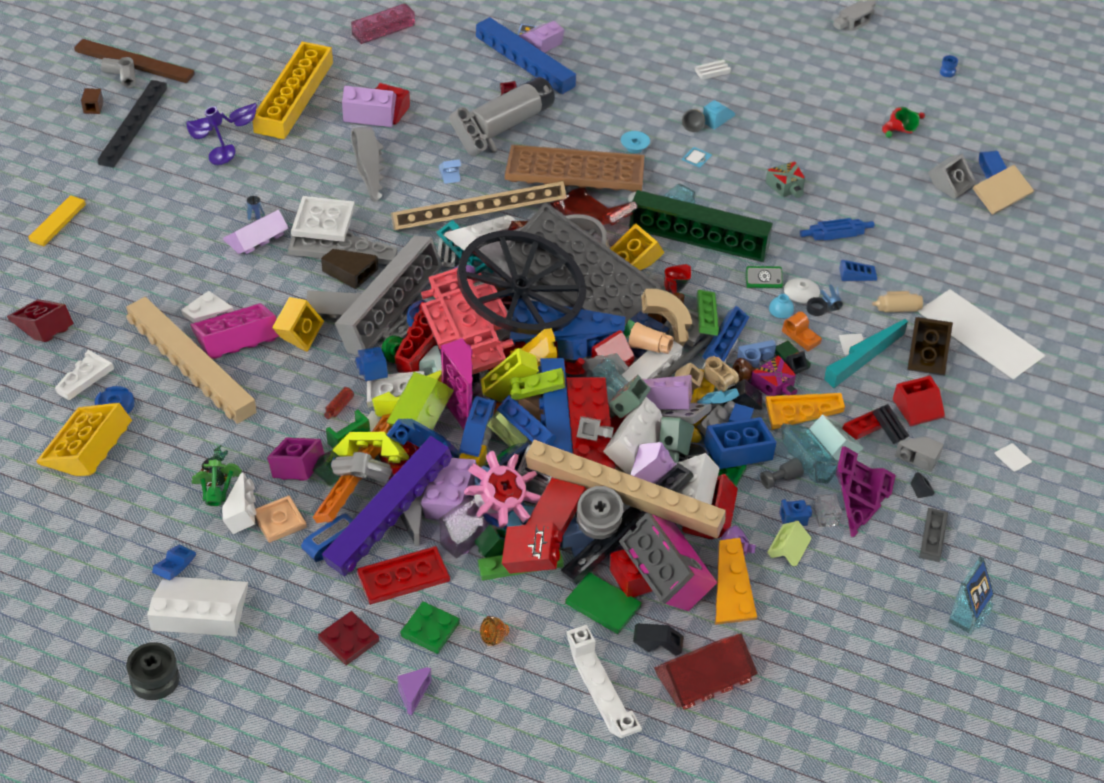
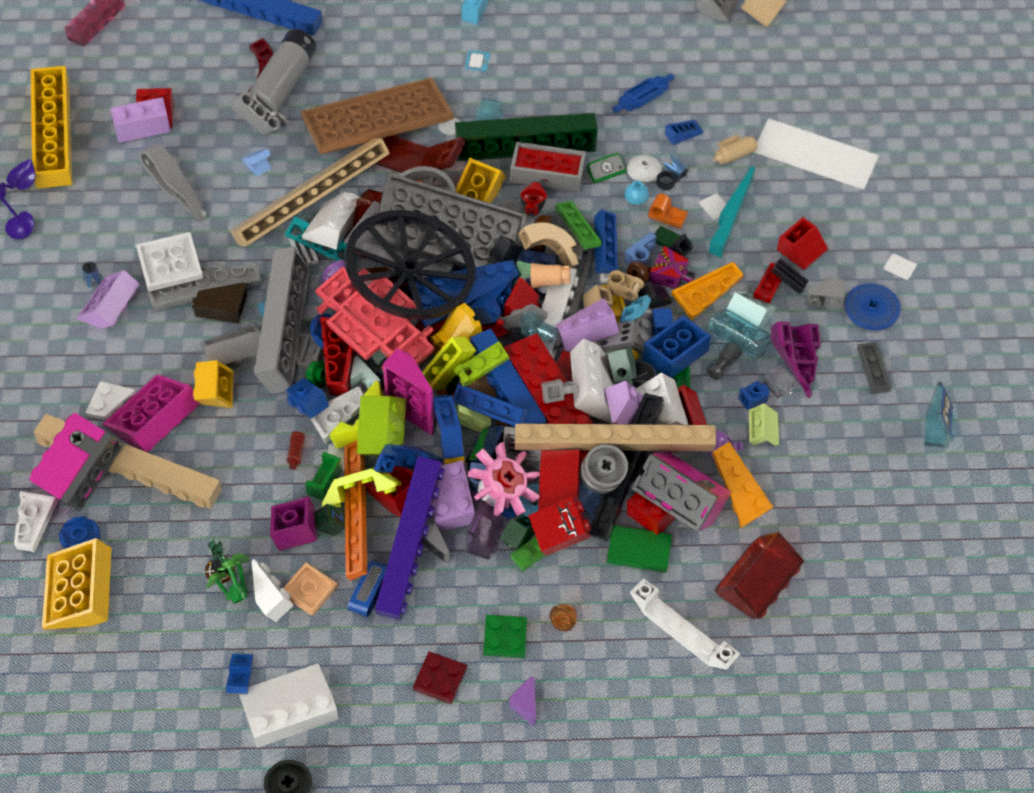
camera: 25 degrees left, 10 degrees up
(142, 338) = (76, 461): none -> piece
(361, 466) = (363, 510): light grey piece -> none
(403, 575) = (452, 596): red tile -> none
(624, 306) = (505, 249): none -> black panel
(628, 397) = (566, 343): sand green torso -> none
(635, 141) = (414, 64): medium azure piece -> none
(653, 635) = (701, 562): black slope -> none
(693, 120) = (456, 23): dark grey piece -> none
(707, 256) = (547, 165): none -> brick
(786, 179) = (574, 57): sand green torso -> none
(921, 486) = (842, 326): black slope -> none
(930, 346) = (783, 185): dark brown slope -> none
(963, 481) = (871, 318): none -> blue piece

